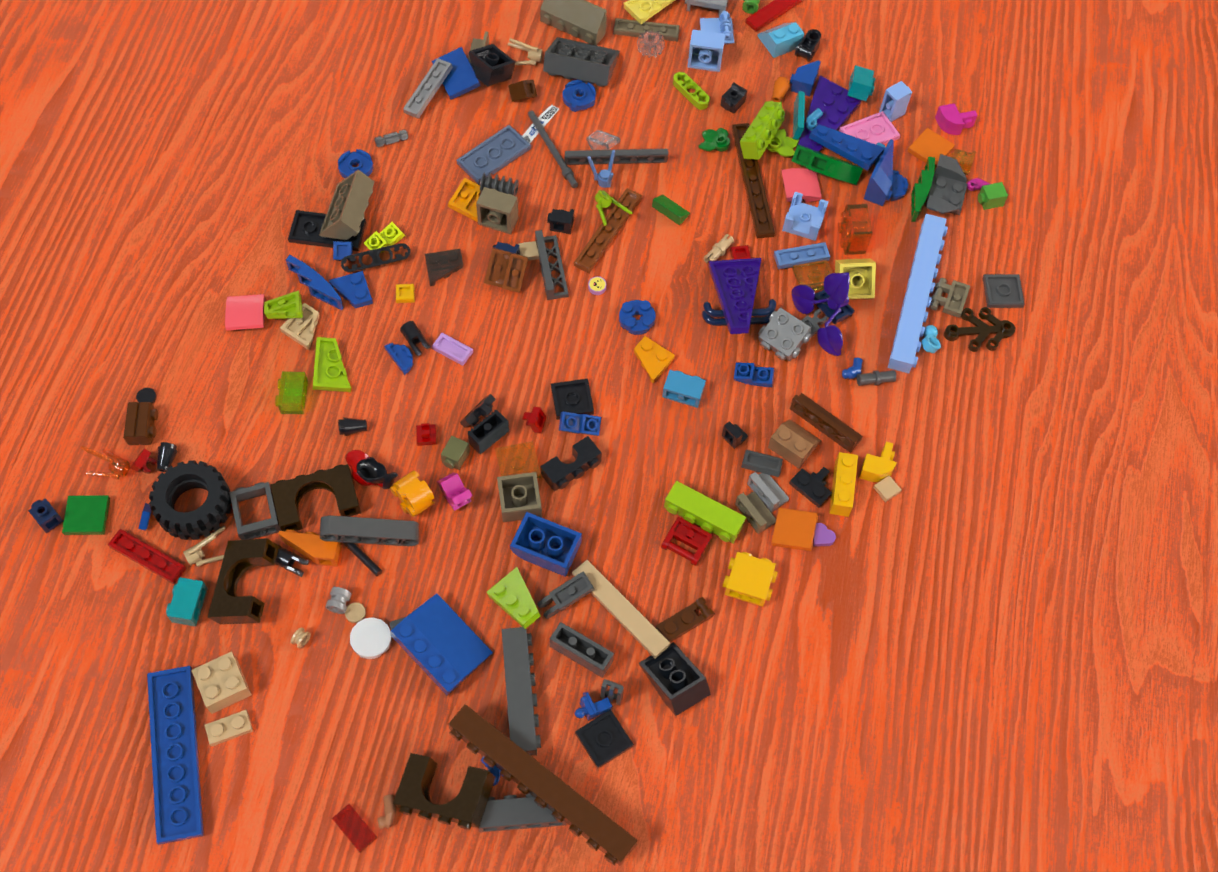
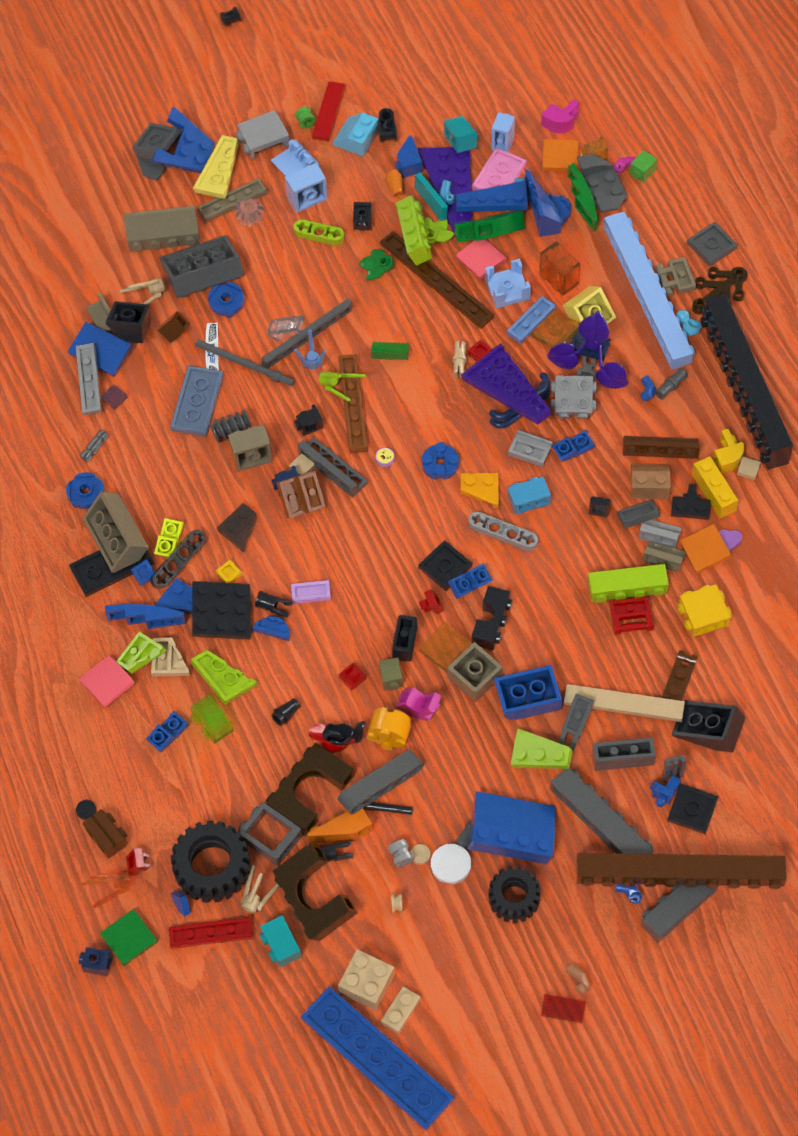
camera: 30 degrees left, 0 degrees up
(166, 455) = (152, 843): black cone -> none
(254, 381) = (168, 732): none -> blue slope
(372, 316) = (221, 610): none -> black plate
(388, 685) = (514, 878): none -> black tyre
(437, 113) = (114, 396): none -> tile
(464, 809) = (640, 931): dark brown arch -> none
(465, 199) = (210, 456): light orange wing -> none
(482, 408) = (380, 626): black hinge -> none
(639, 403) = (504, 529): none -> light grey beam
(716, 353) = (530, 448): none -> light grey plate
(939, 417) = (746, 382): none -> black brick

